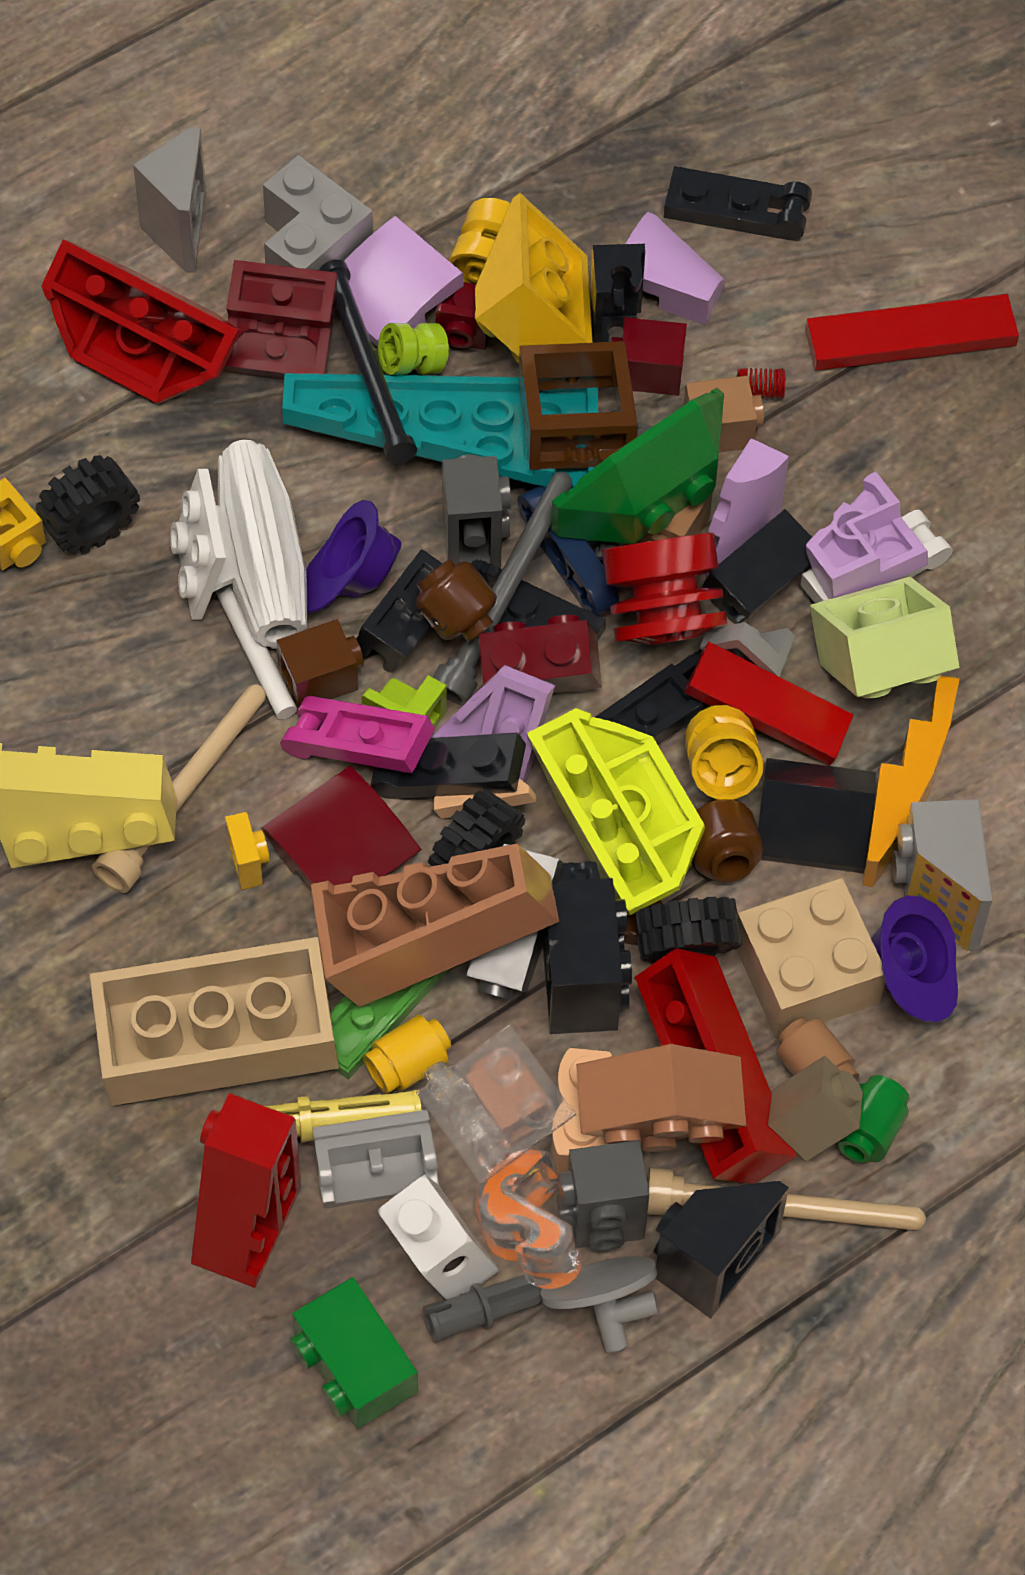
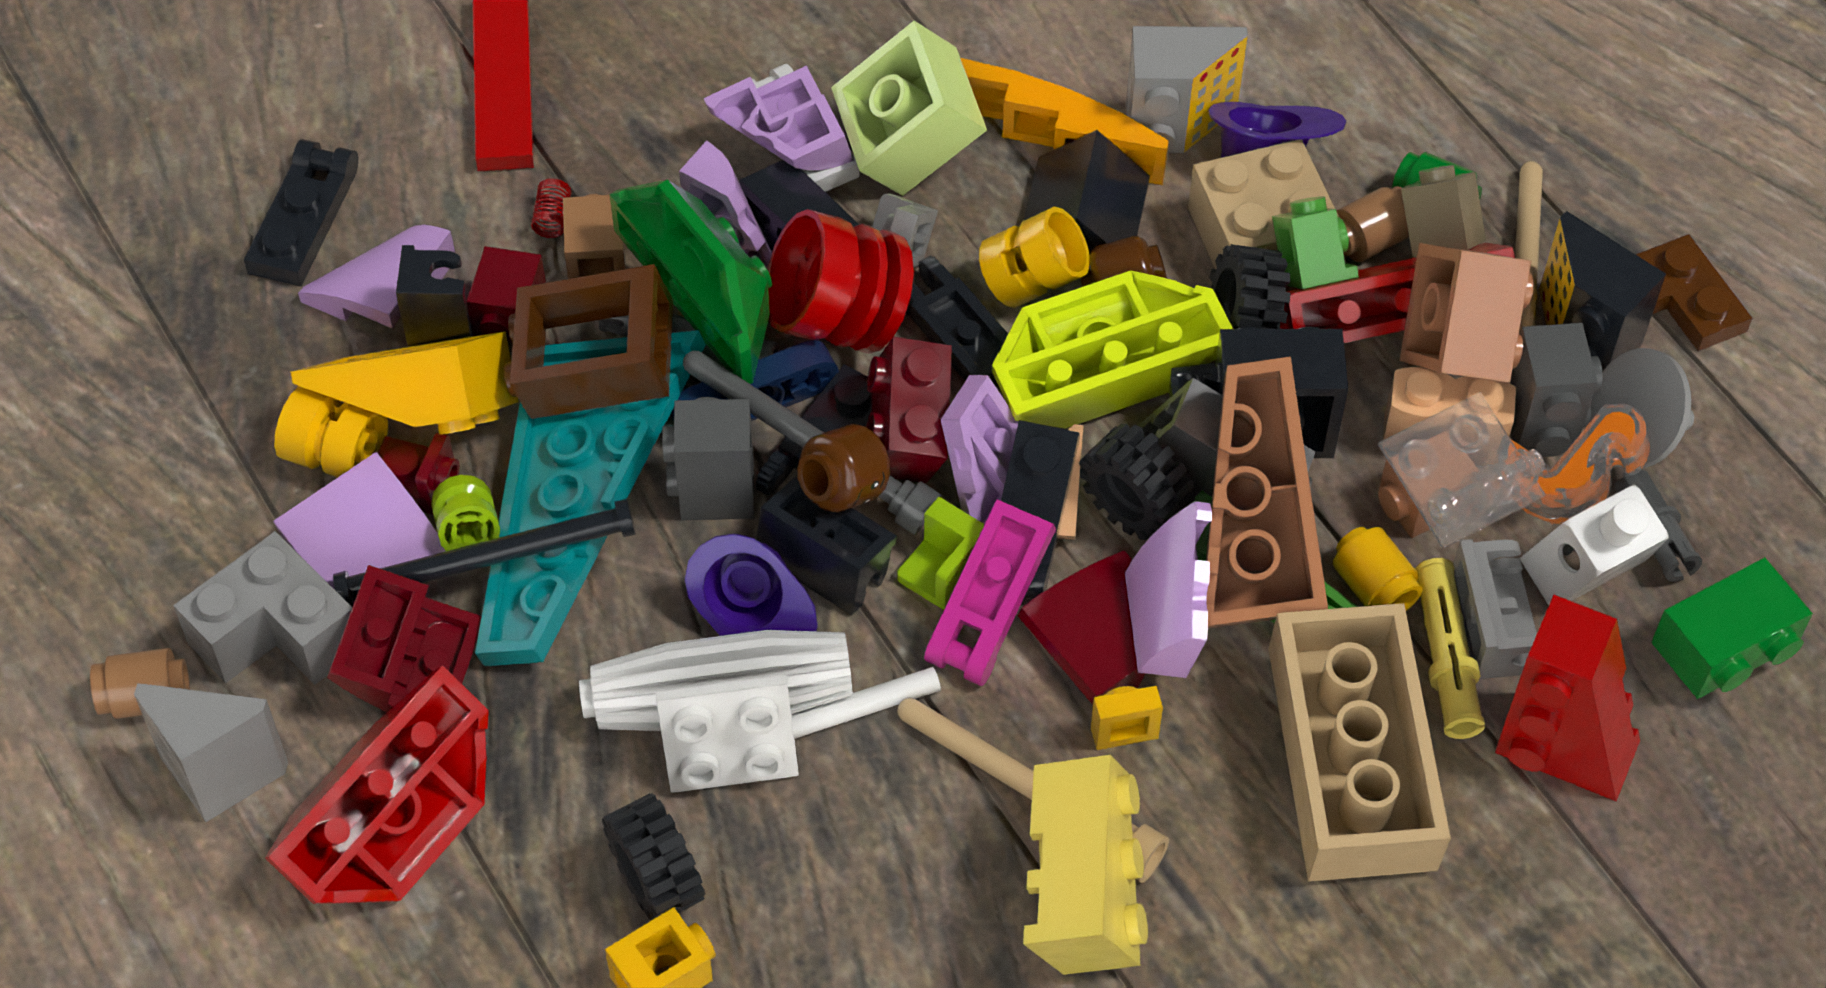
camera: 85 degrees left, 5 degrees down
(246, 156) = (117, 678): none -> medium nougat brick
(319, 662) = (884, 633): reddish brown brick -> none
(339, 863) = (1170, 595): none -> lavender slope
(739, 974) = (1313, 244): none -> bright green brick
(770, 703) = (971, 214): red tile -> none
(788, 1346) = (1696, 294): none -> reddish brown plate

